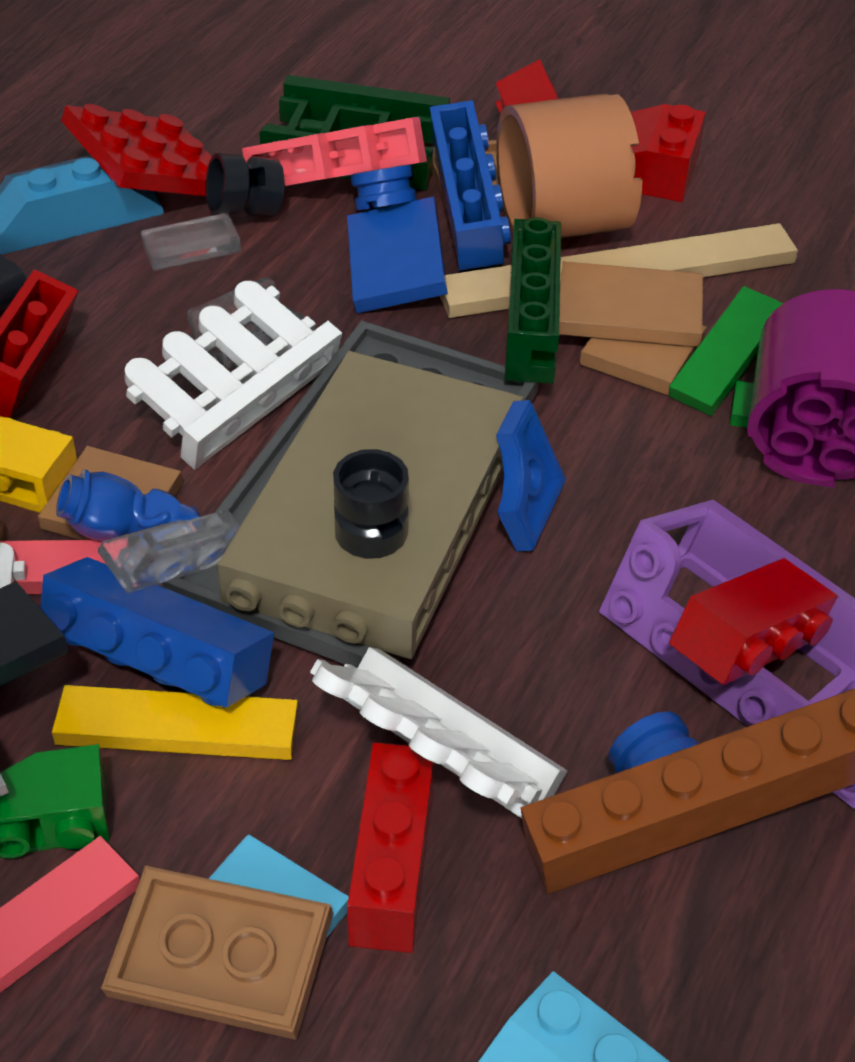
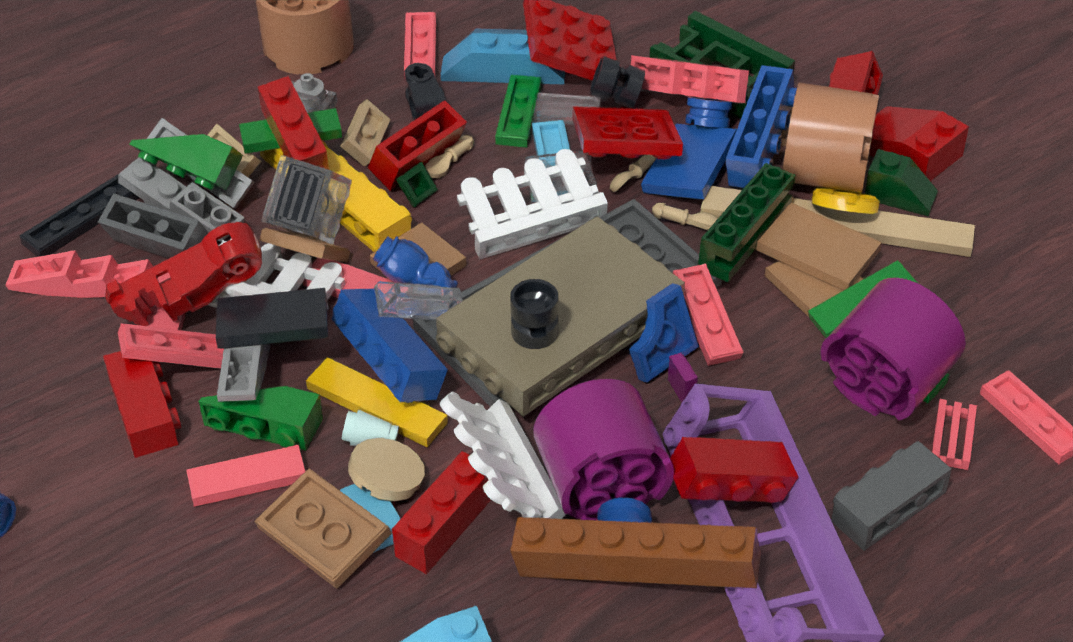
camera: 30 degrees right, 0 degrees up
(47, 397) = (416, 184): none -> dark green slope
(61, 363) = (440, 165): none -> tan piece
(126, 262) = (518, 111): none -> green tile
(192, 282) = (550, 137): none -> medium azure tile
(196, 769) = (365, 426): none -> light aqua cone
(262, 817) = (386, 469): none -> tan tile
(300, 240) = (626, 132): none -> red plate
(332, 288) = (635, 170): none -> tan piece
(431, 324) = (701, 220): none -> tan piece
(575, 660) = (601, 447): none -> magenta brick
(578, 450) = (709, 316): none -> coral tile
(583, 526) = (681, 375): none -> magenta tile
(623, 239) = (845, 201): none -> yellow tile
(669, 205) = (900, 183): none -> dark green slope

